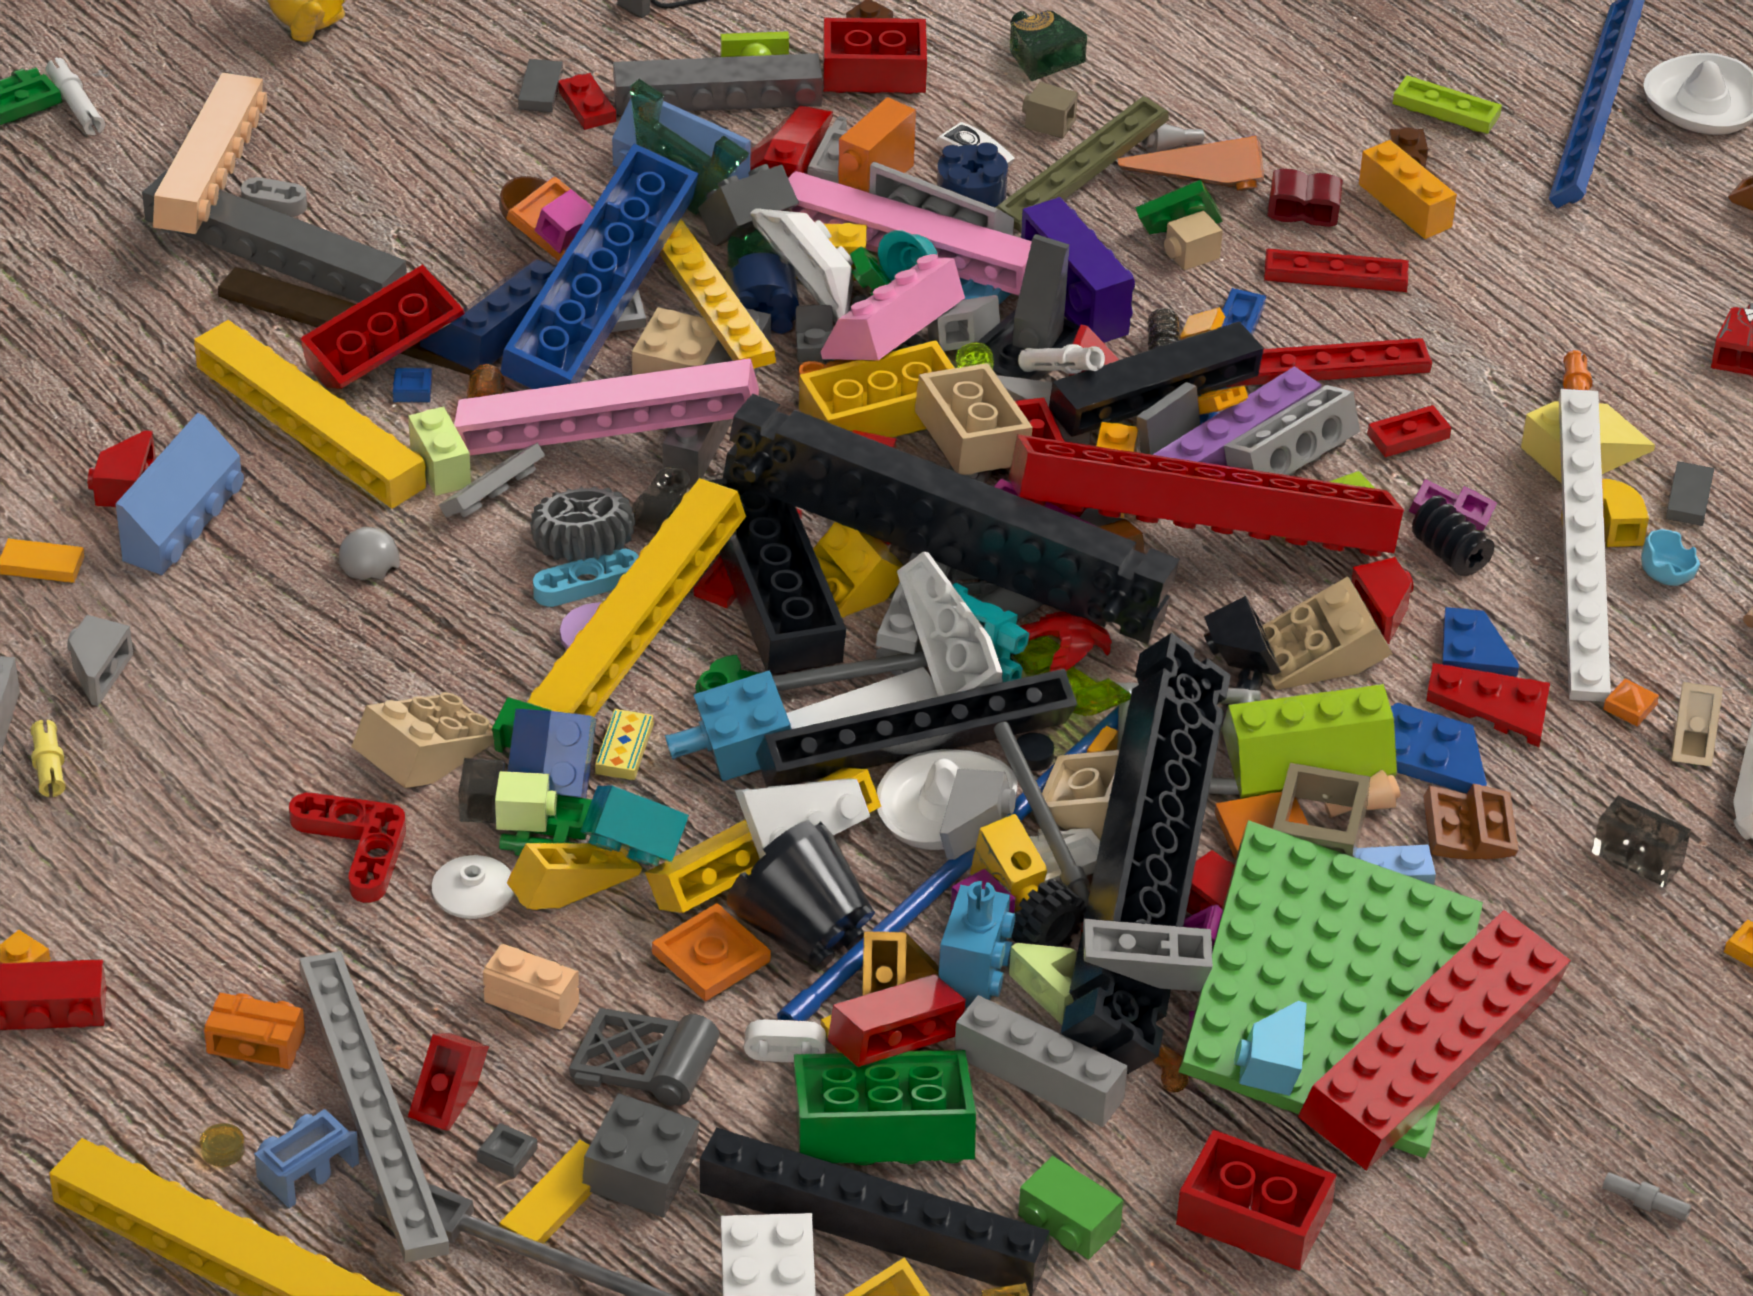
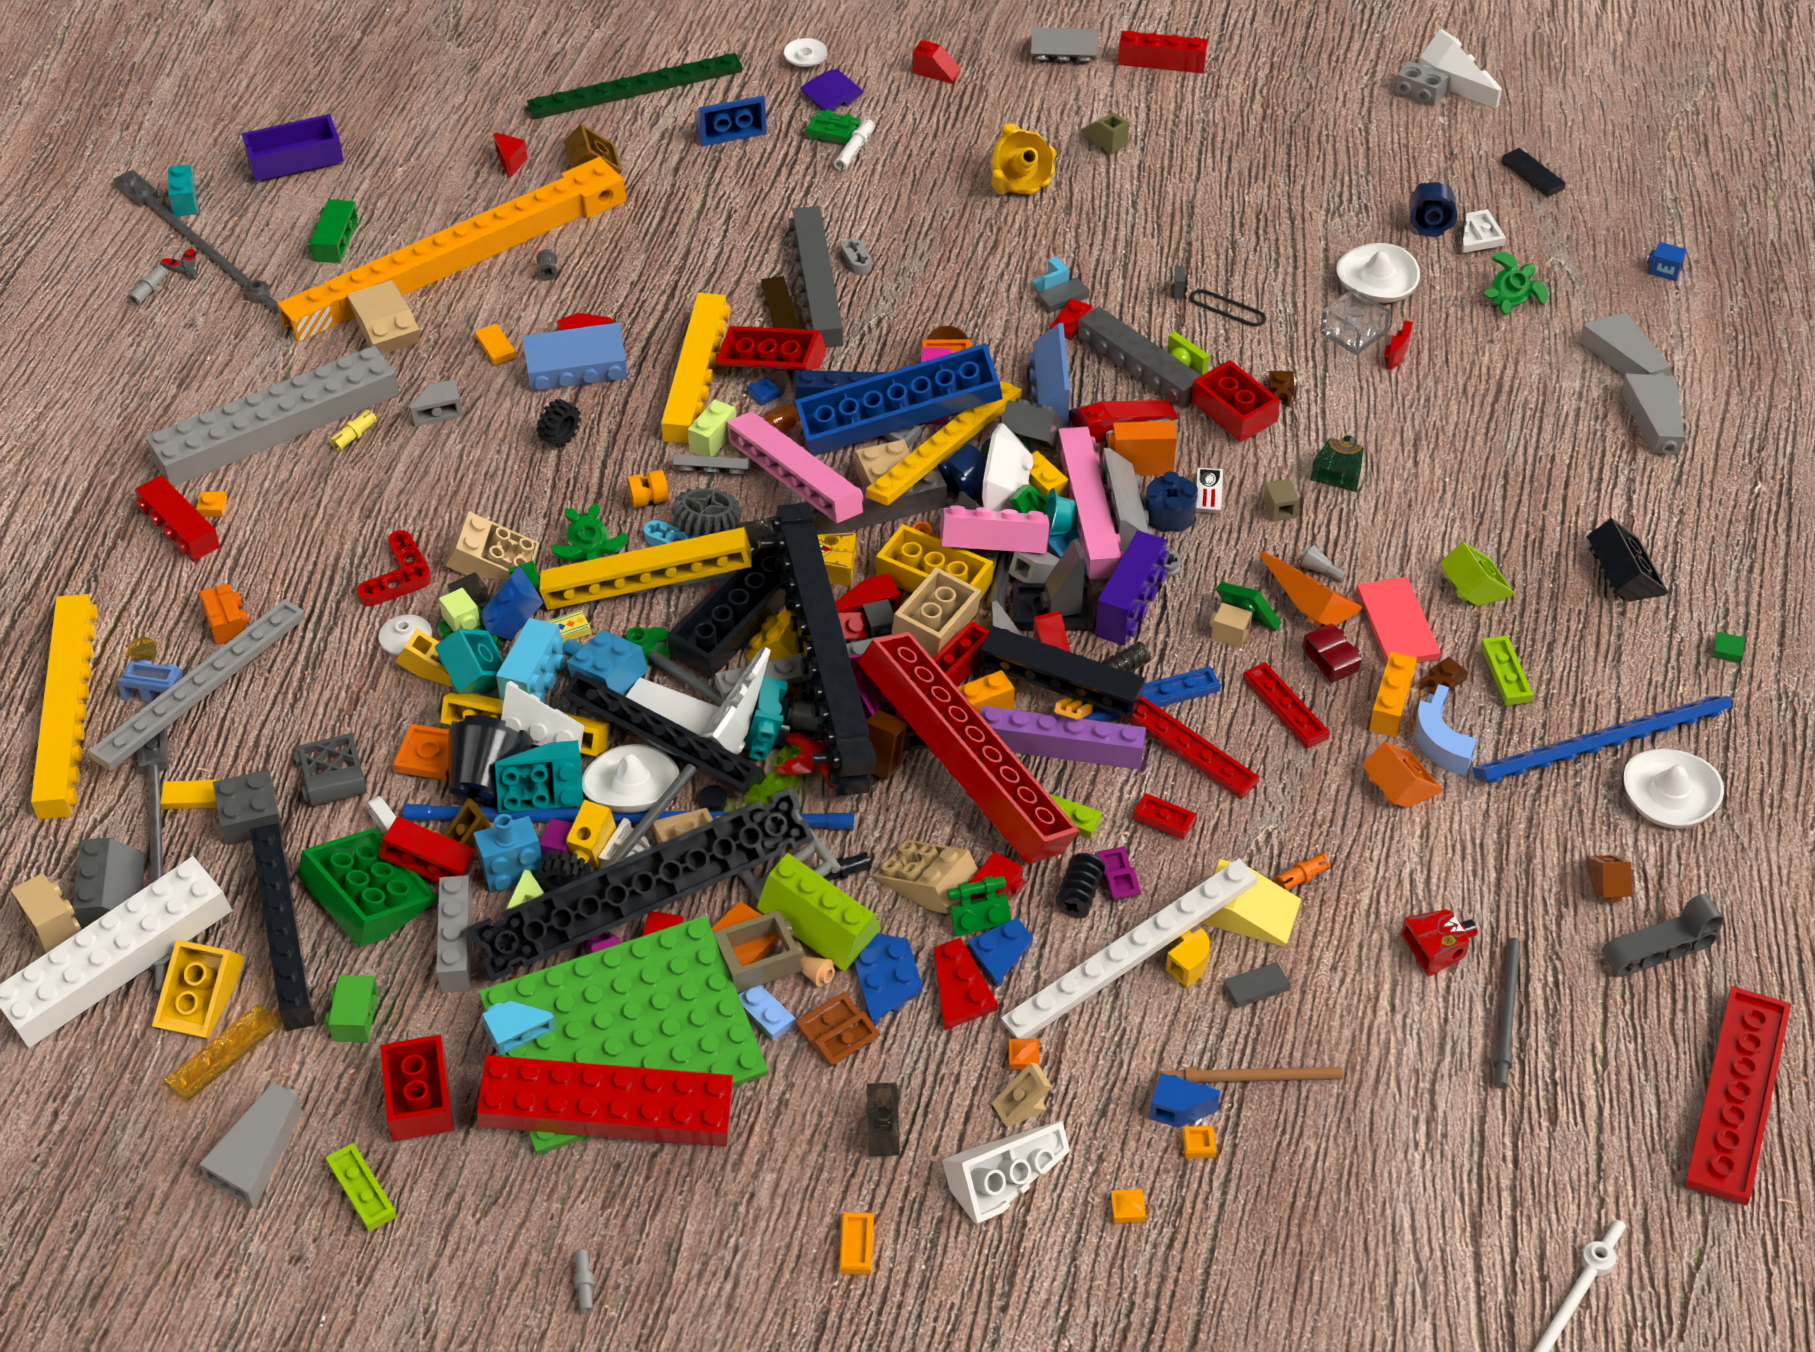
camera: 55 degrees right, 5 degrees up
(209, 153) = (842, 209): light nougat brick -> none
(279, 565) = (558, 423): none -> black tyre
(368, 553) = (612, 451): light grey hair -> none
(447, 1079) = (247, 702): red slope -> none
(479, 551) = (647, 488): none -> light orange wheel
(507, 74) = (1057, 274): none -> medium azure panel
(507, 1150) = (222, 756): dark grey tile -> none
(508, 640) = (587, 537): none -> green animal
(531, 986) = (337, 696): light nougat brick -> none
(661, 140) = (1024, 373): clear green wing -> none
(685, 776) = (533, 659): none -> medium azure brick
(894, 851) = (540, 778): none -> teal slope
(974, 354) = (1009, 590): clear neon green tile -> none
(974, 802) = (604, 788): light grey slope -> none
(1070, 359) = (1025, 620): white pin -> none
(1088, 158) = (1243, 539): olive tile -> none
(1150, 953) = (534, 923): light grey slope -> none
(1168, 419) = (1029, 696): dark grey tile -> none
(1202, 322) = (1156, 672): light orange tile -> none
(1240, 637) = (886, 835): black slope -> none
(1297, 433) = (1099, 756): light grey brick -> none
(1302, 49) = (1475, 576): none -> lime slope
(1303, 135) = (1397, 619): none -> coral tile
(1415, 620) = (978, 913): none -> green plate
(1493, 197) = (1437, 740): none -> light blue arch
(1519, 246) = (1400, 776): none -> orange slope
(1667, 559) = (1171, 1002): medium azure hair -> none

